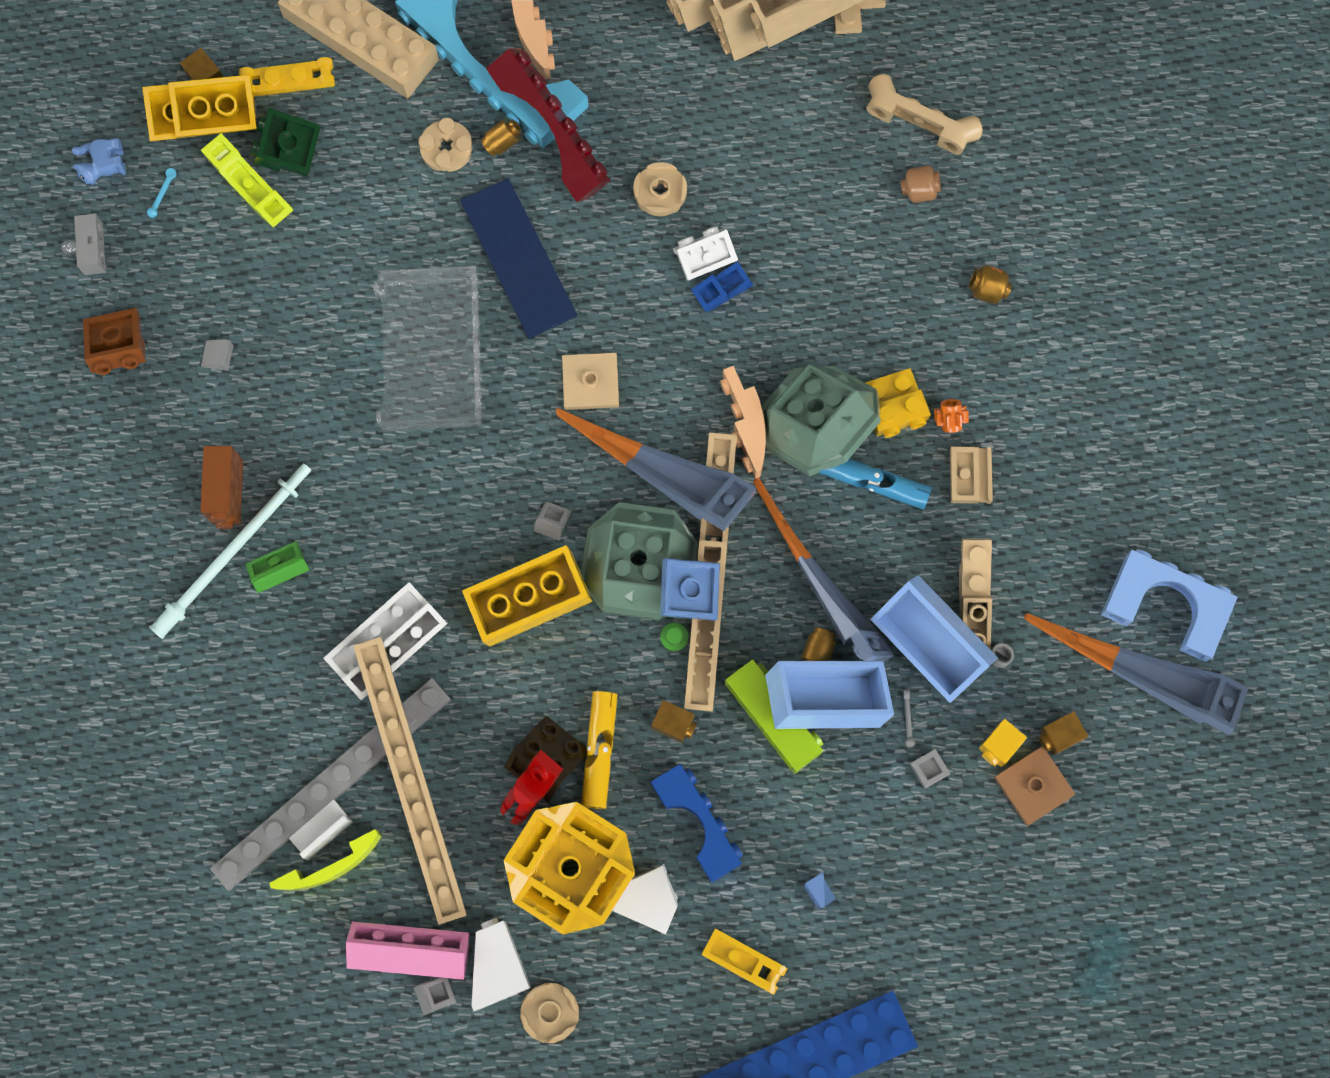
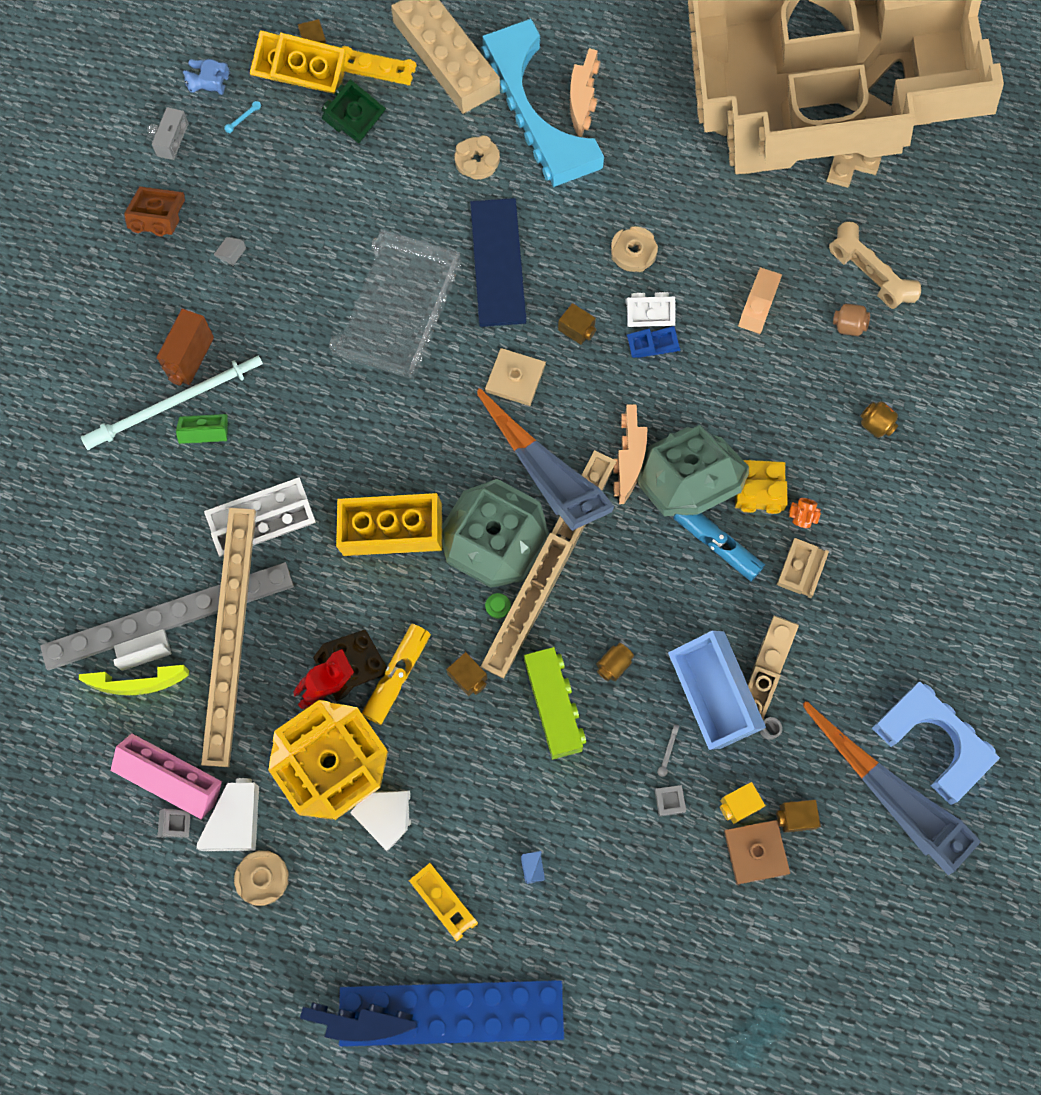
camera: 20 degrees right, 5 degrees down
(246, 181) = (310, 128): neon yellow slope -> none
(502, 136) = (523, 164): pearl gold brick -> none
(552, 520) = (437, 474): light grey slope -> none
(580, 169) = (574, 210): dark red arch -> none
(634, 298) = (577, 324): none -> pearl gold brick
(677, 791) = (457, 800): blue arch -> none
(689, 589) = (524, 568): medium blue tile -> none
(817, 197) = (760, 300): none -> light nougat slope
(829, 694) = (606, 701): light blue piece -> none
(846, 619) = (649, 648): sand blue plate -> none

